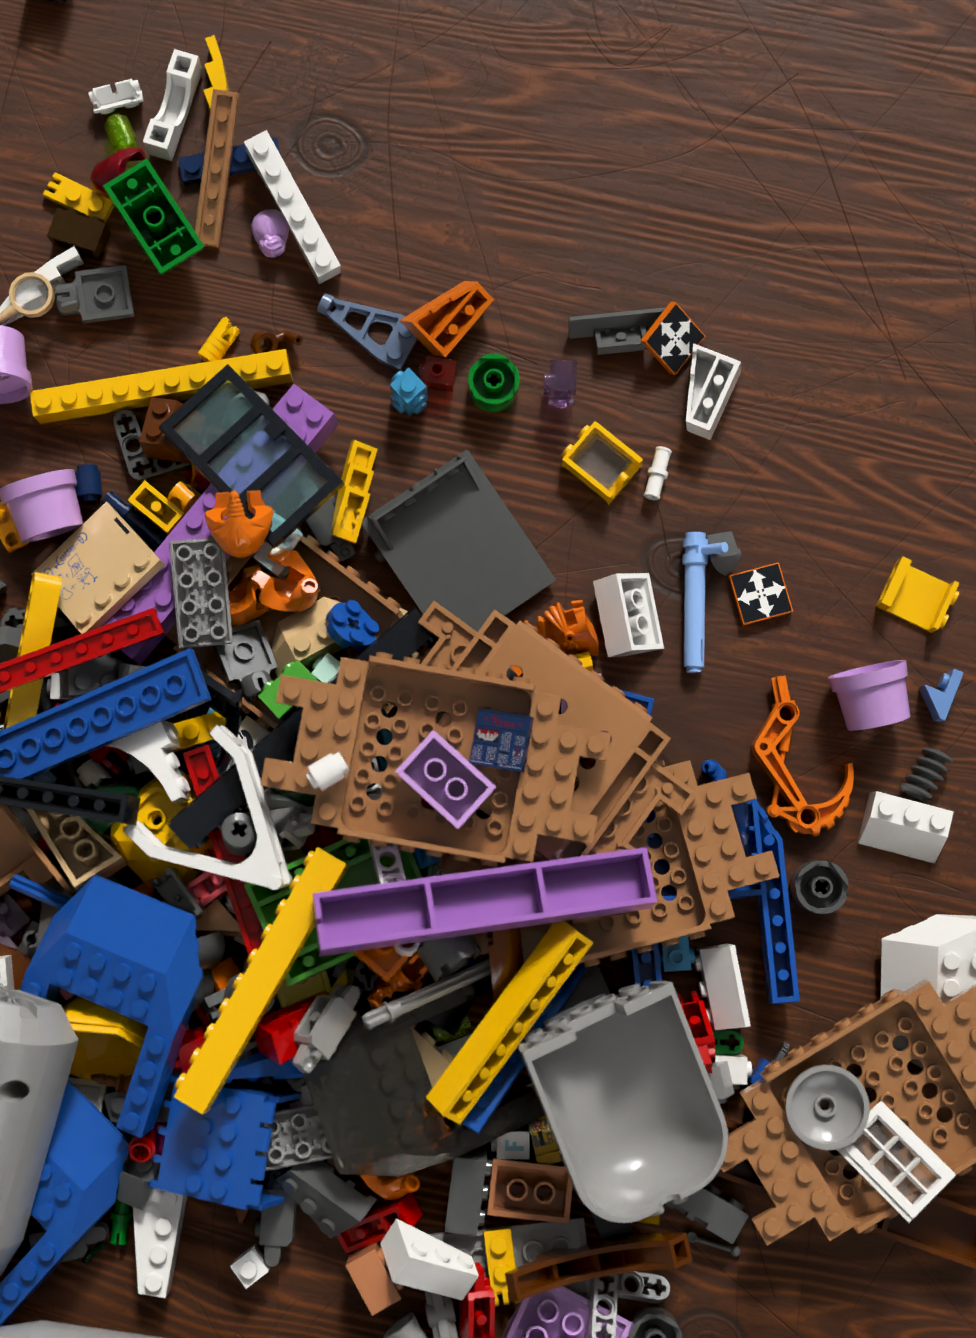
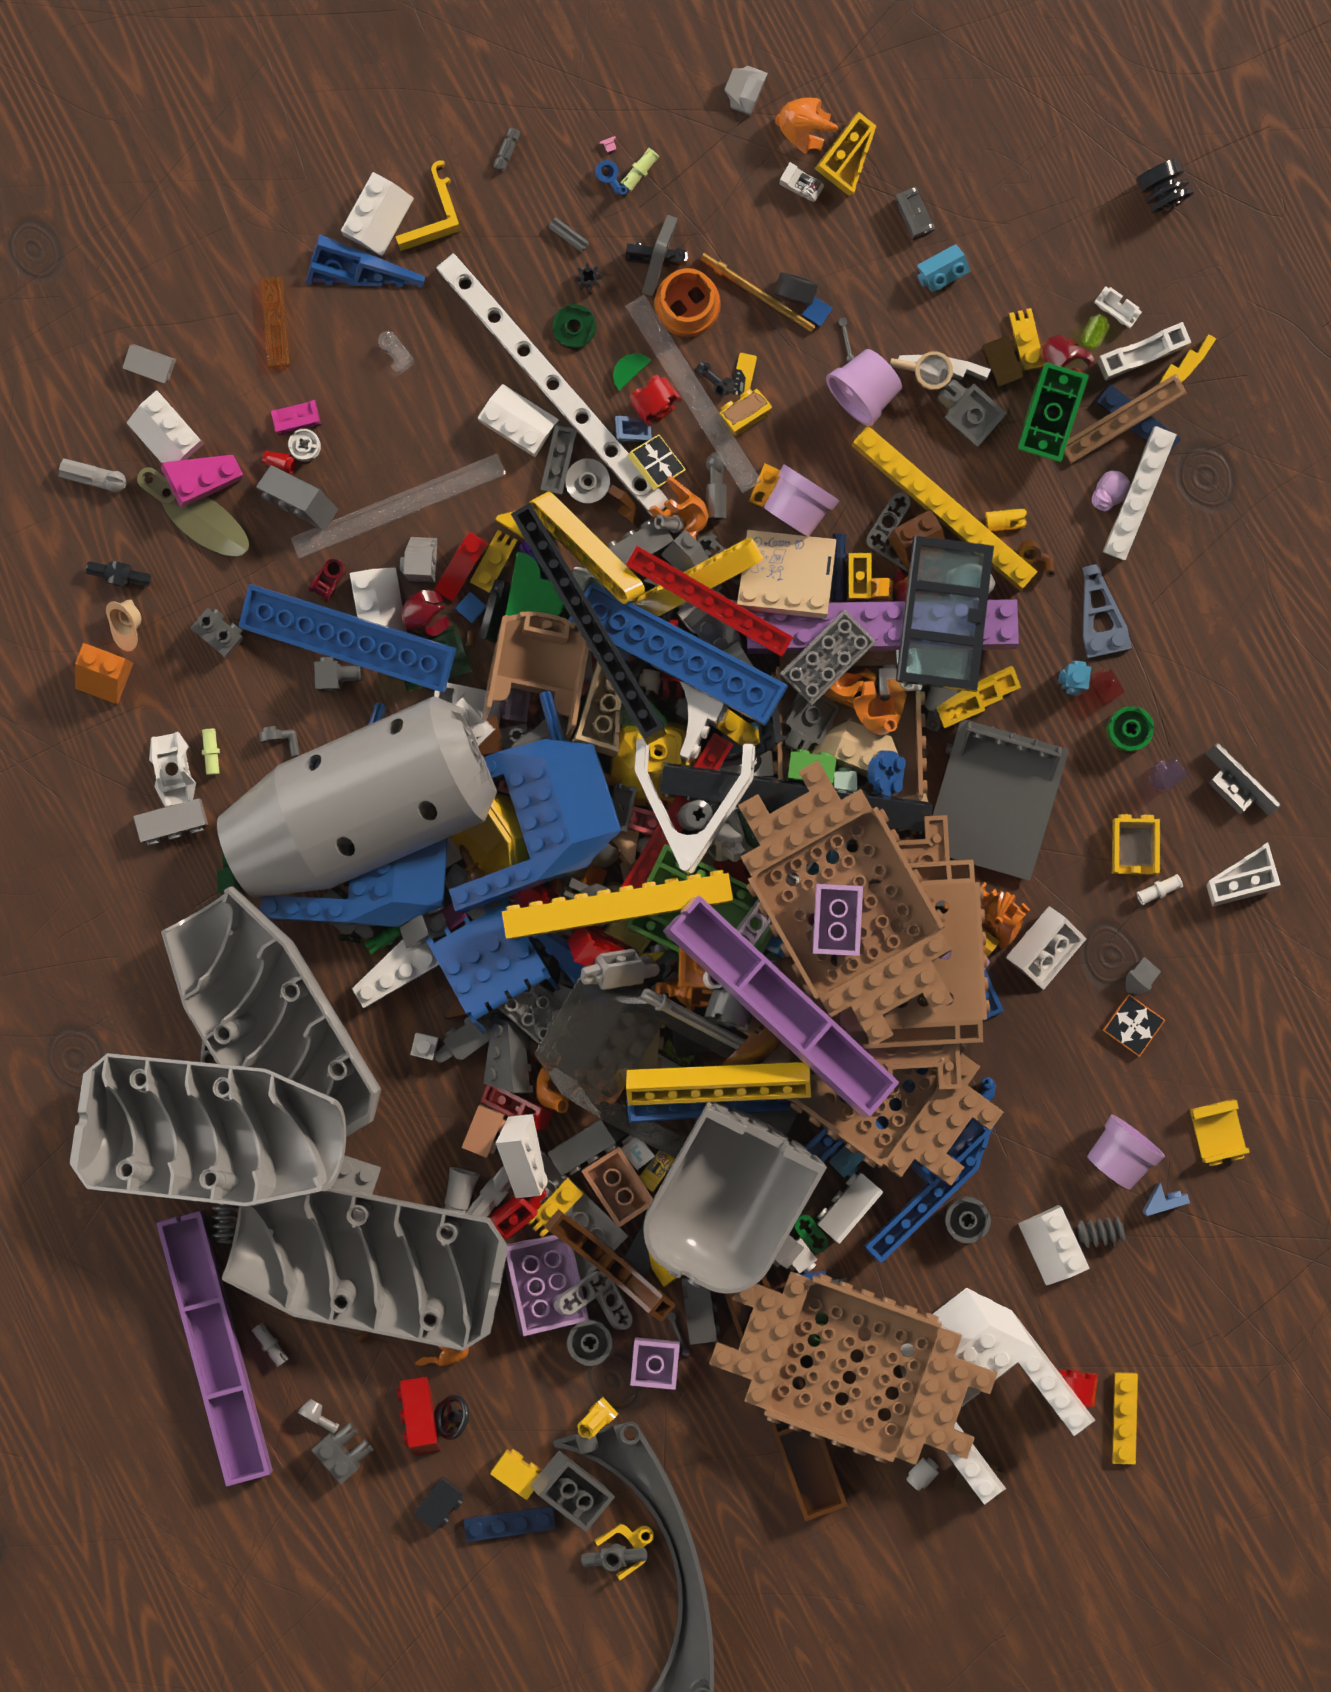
camera: 55 degrees right, 5 degrees up
(88, 483) = (839, 515): dark blue brick -> none
(143, 1148) = (446, 915): red cone -> none
(238, 534) = (886, 652): orange piece -> none
(327, 771) = (782, 841): white brick -> none
(448, 317) = (1150, 661): orange wedge -> none
(501, 740) = (891, 934): dark blue tile -> none
(672, 338) = (1261, 825): tile -> none
(695, 560) = (1118, 964): light blue cylinder -> none
(700, 1027) = (811, 1212): red hinge -> none
(723, 1292) = (655, 1363): none -> lavender brick
(764, 750) = (1029, 1110): orange piece -> none
(840, 1121) = (822, 1348): light grey dish -> none
(897, 1163) = (828, 1402): white piece -> none

